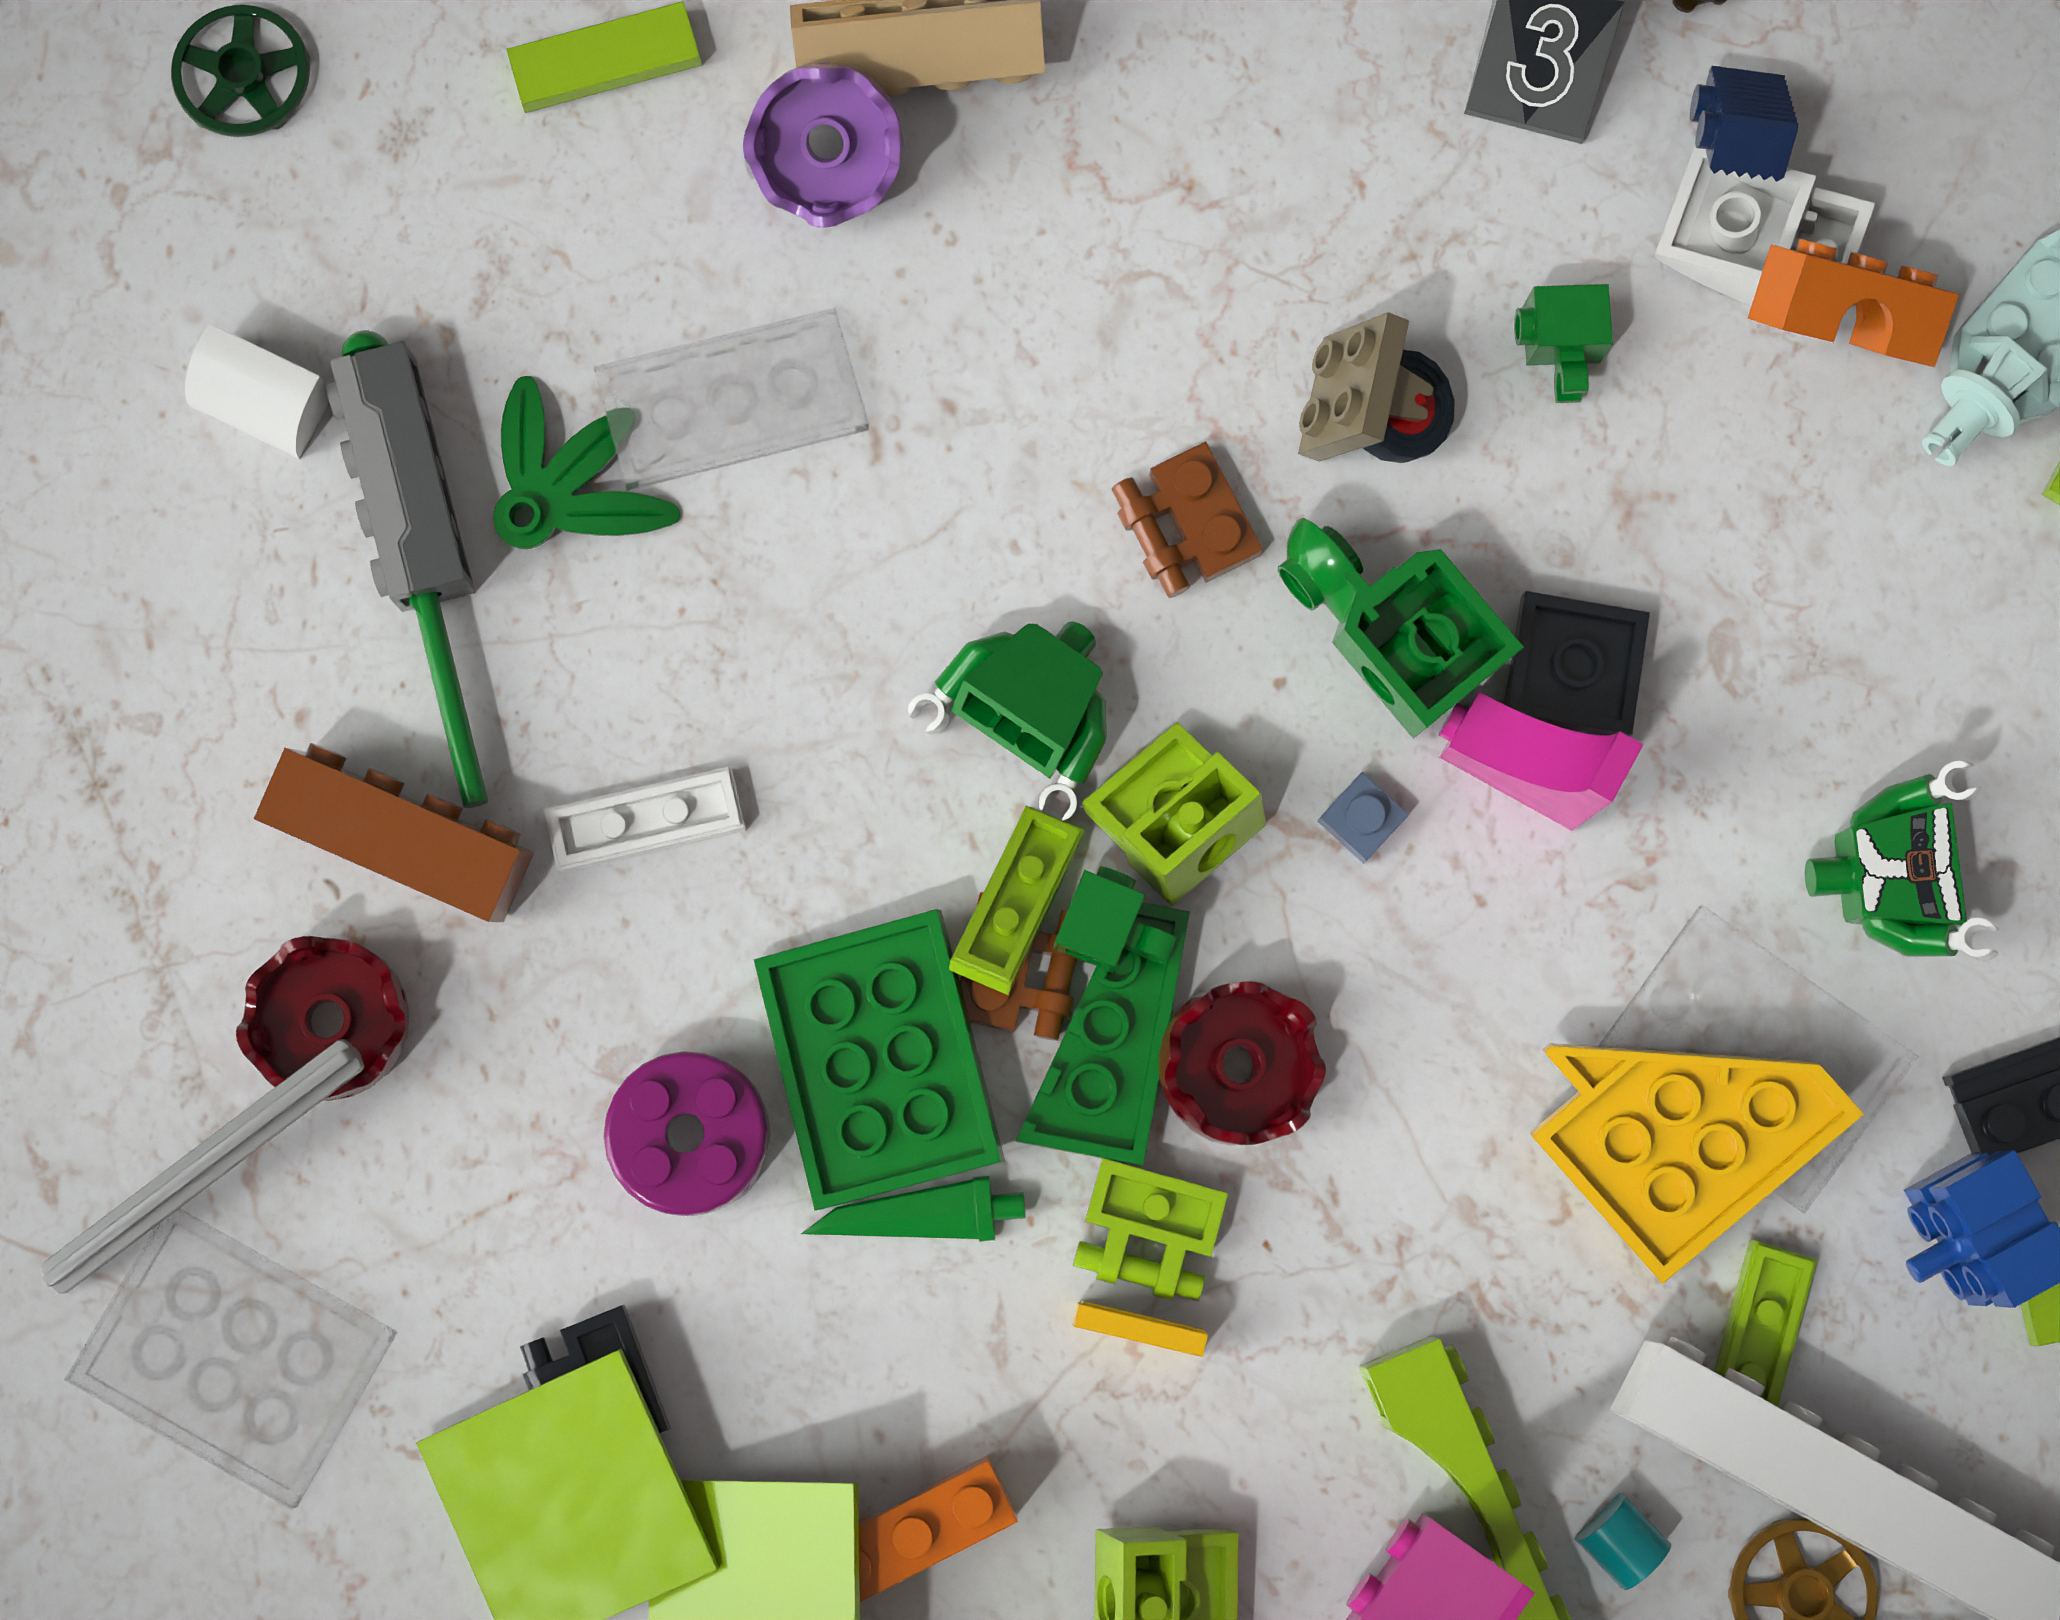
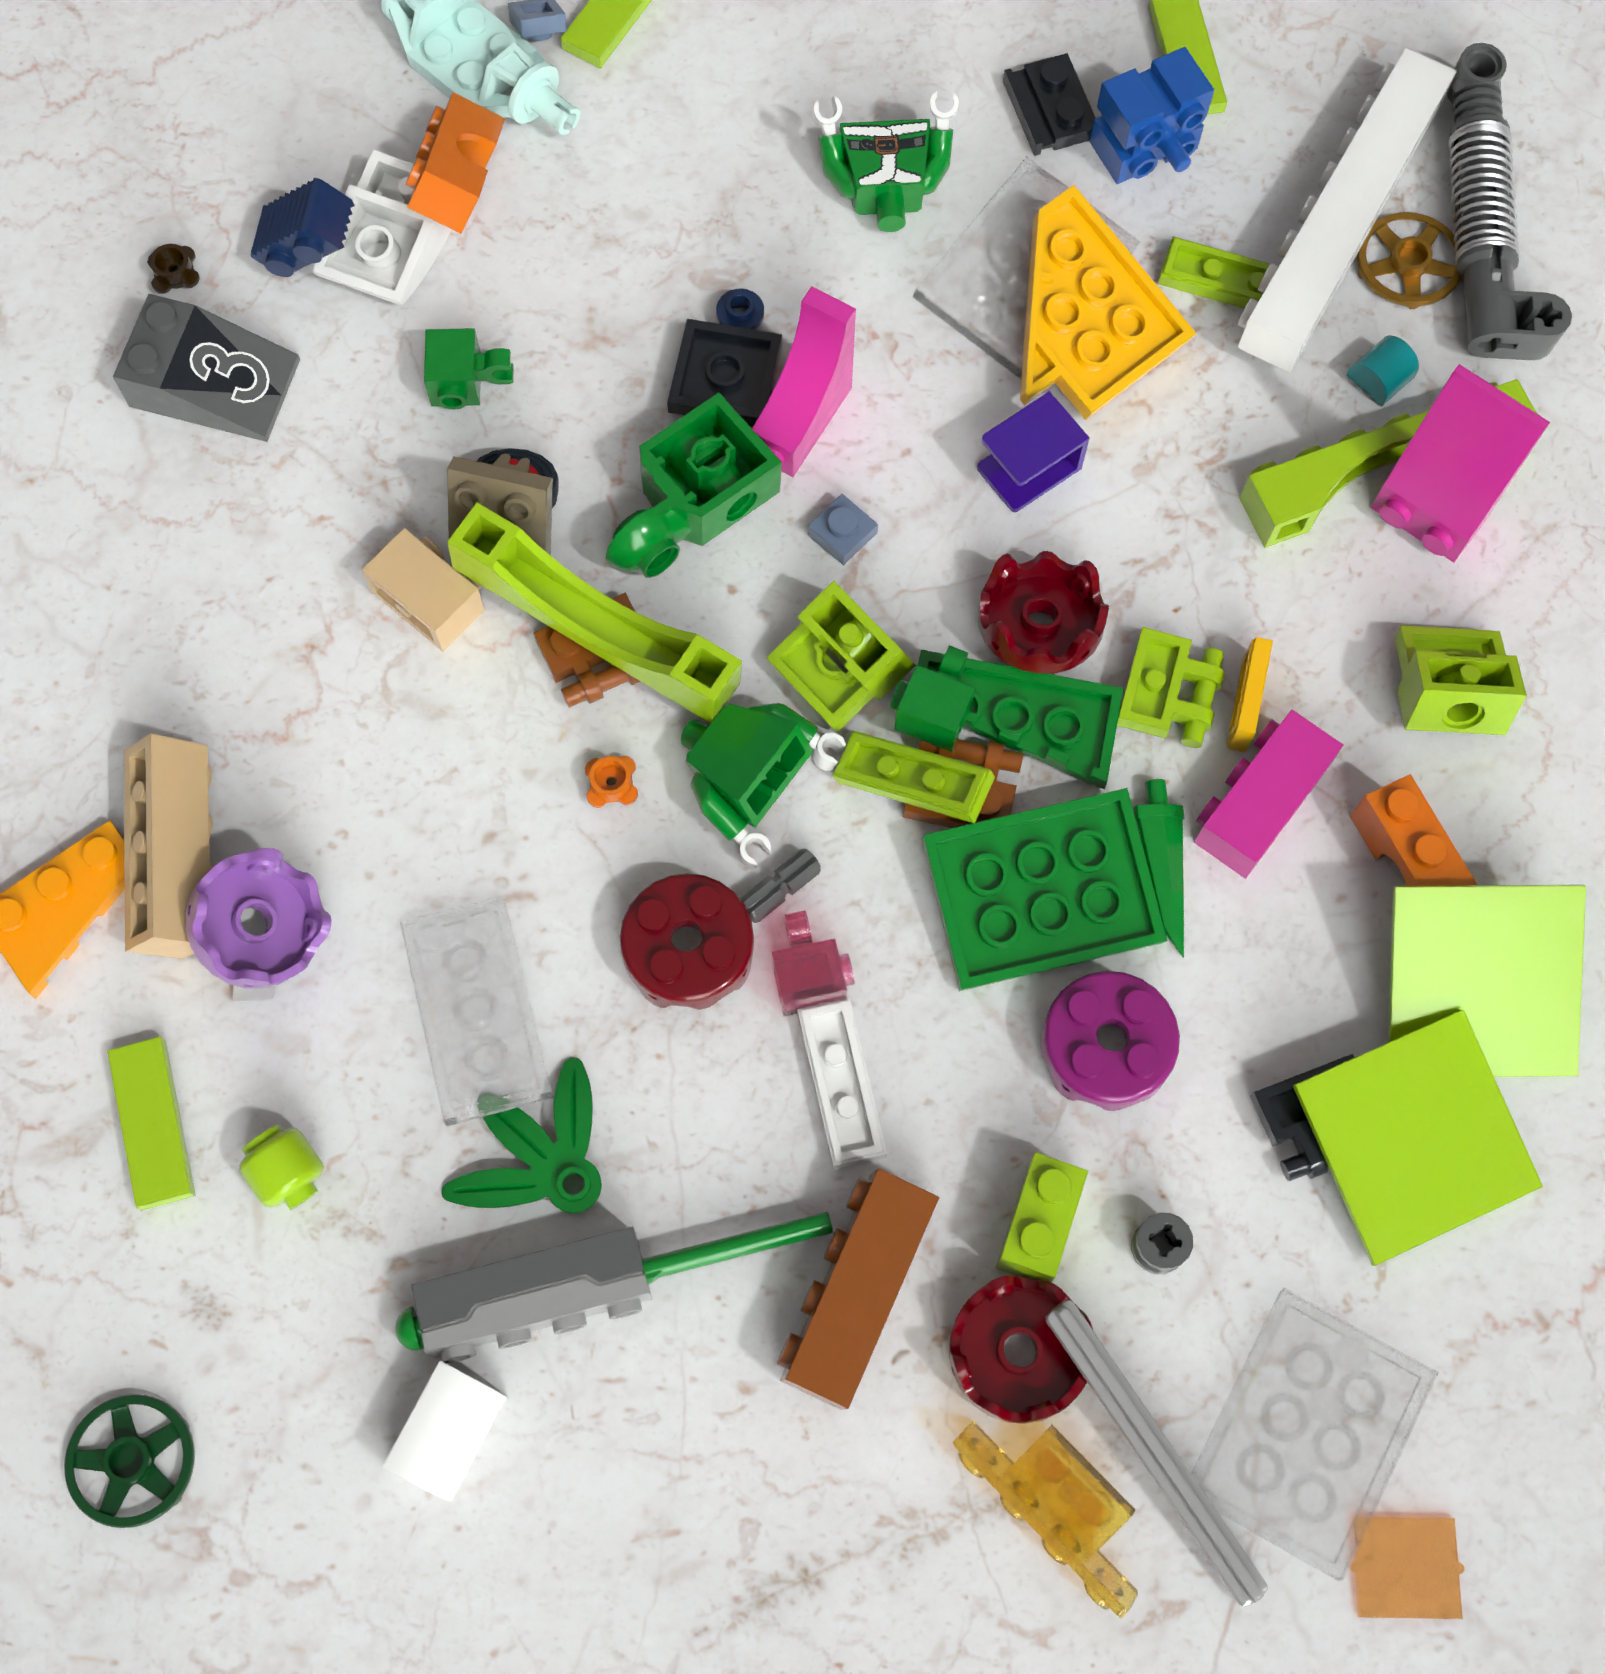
camera: 85 degrees left, 10 degrees down
(79, 1460) = (1408, 1569): none -> clear orange piece
(154, 1058) = (1062, 1502): none -> clear yellow bracket
(458, 1191) = (1157, 1253): none -> dark grey wheel
(471, 1045) = (1041, 1218): none -> lime brick
(544, 197) = (281, 1167): none -> lime head
(771, 777) = (807, 970): none -> clear pink brick
(816, 677) = (694, 976): none -> dark red plate
(892, 753) = (788, 879): none -> dark grey piece
(1007, 1343) = (1265, 792): none -> dark pink brick
(1016, 525) = (608, 767): none -> orange plate
(1209, 502) = (662, 657): none -> lime arch
(1259, 308) = (424, 588): none -> tan brick
(1471, 1056) = (1032, 452): none -> dark purple piece
(1656, 694) = (738, 298): none -> dark blue plate

